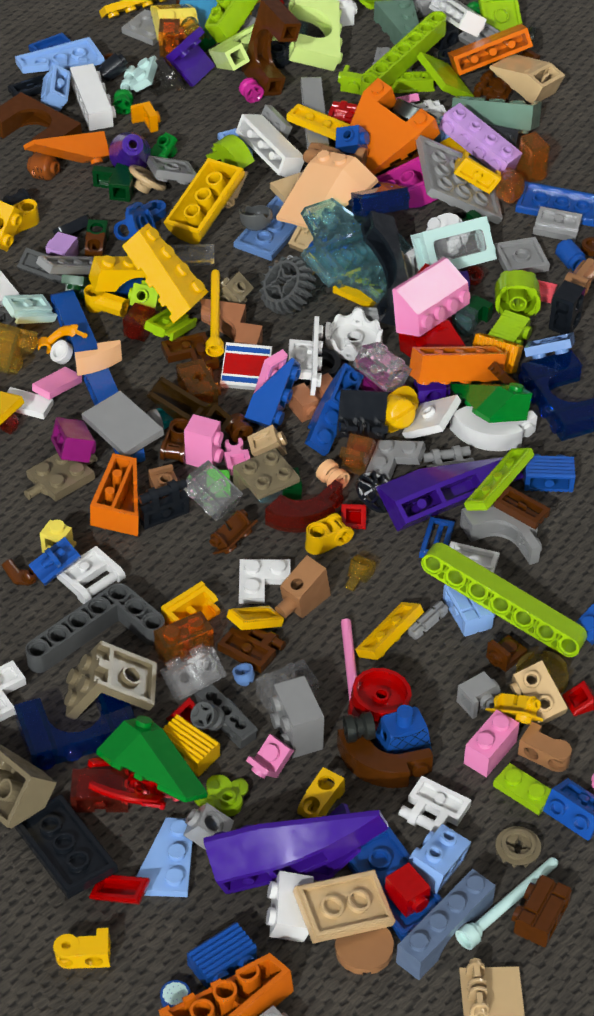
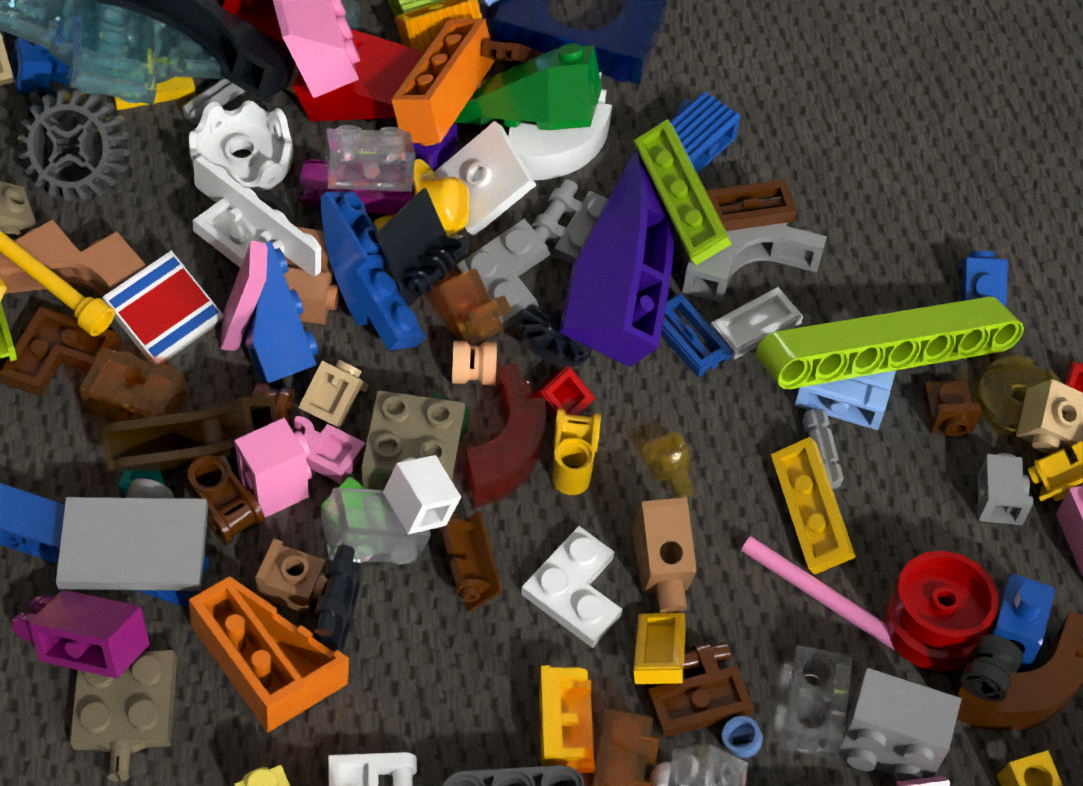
camera: 55 degrees left, 10 degrees up
(235, 488) = (421, 494): none -> white brick

